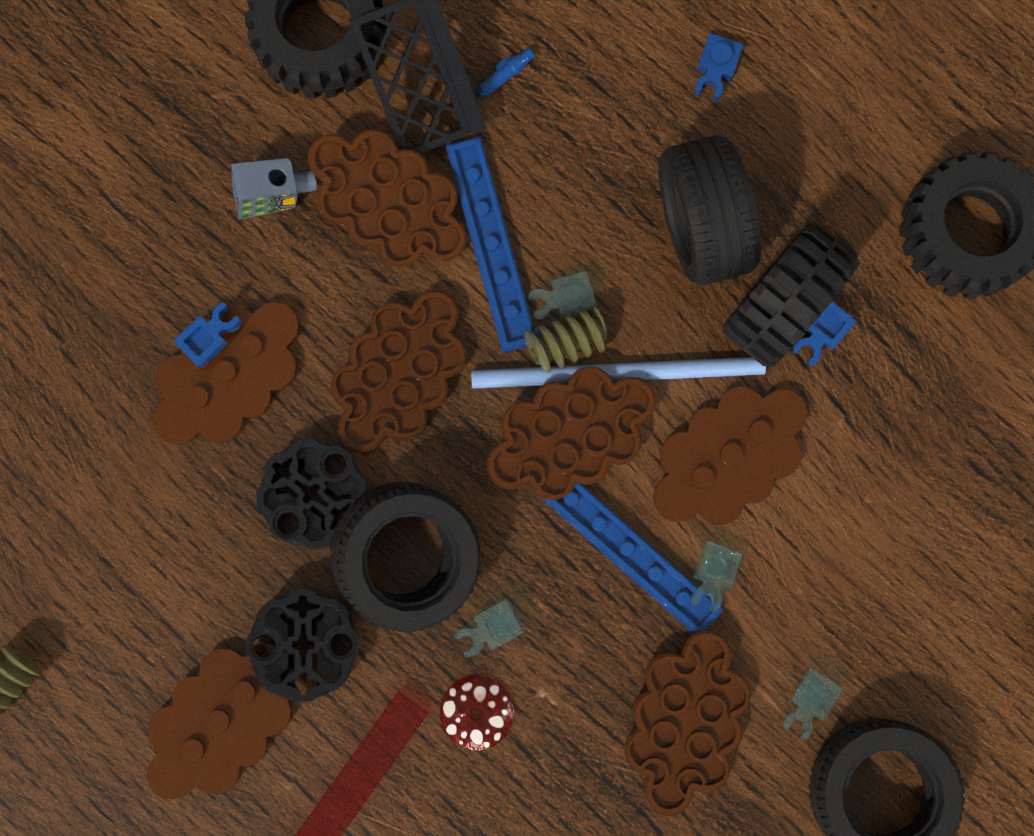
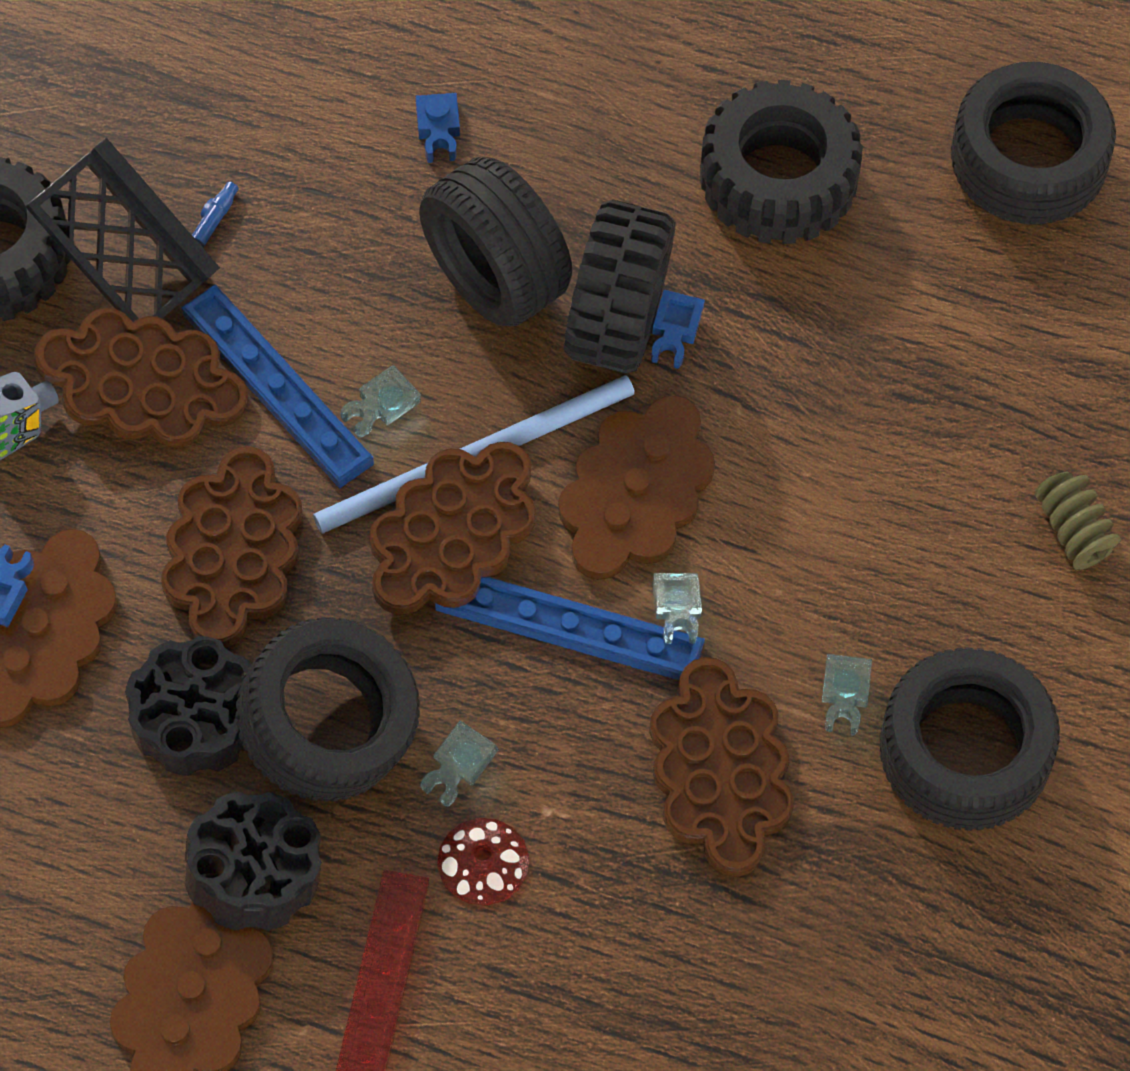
camera: 25 degrees left, 20 degrees down
(567, 338) = (403, 436): olive piece -> none

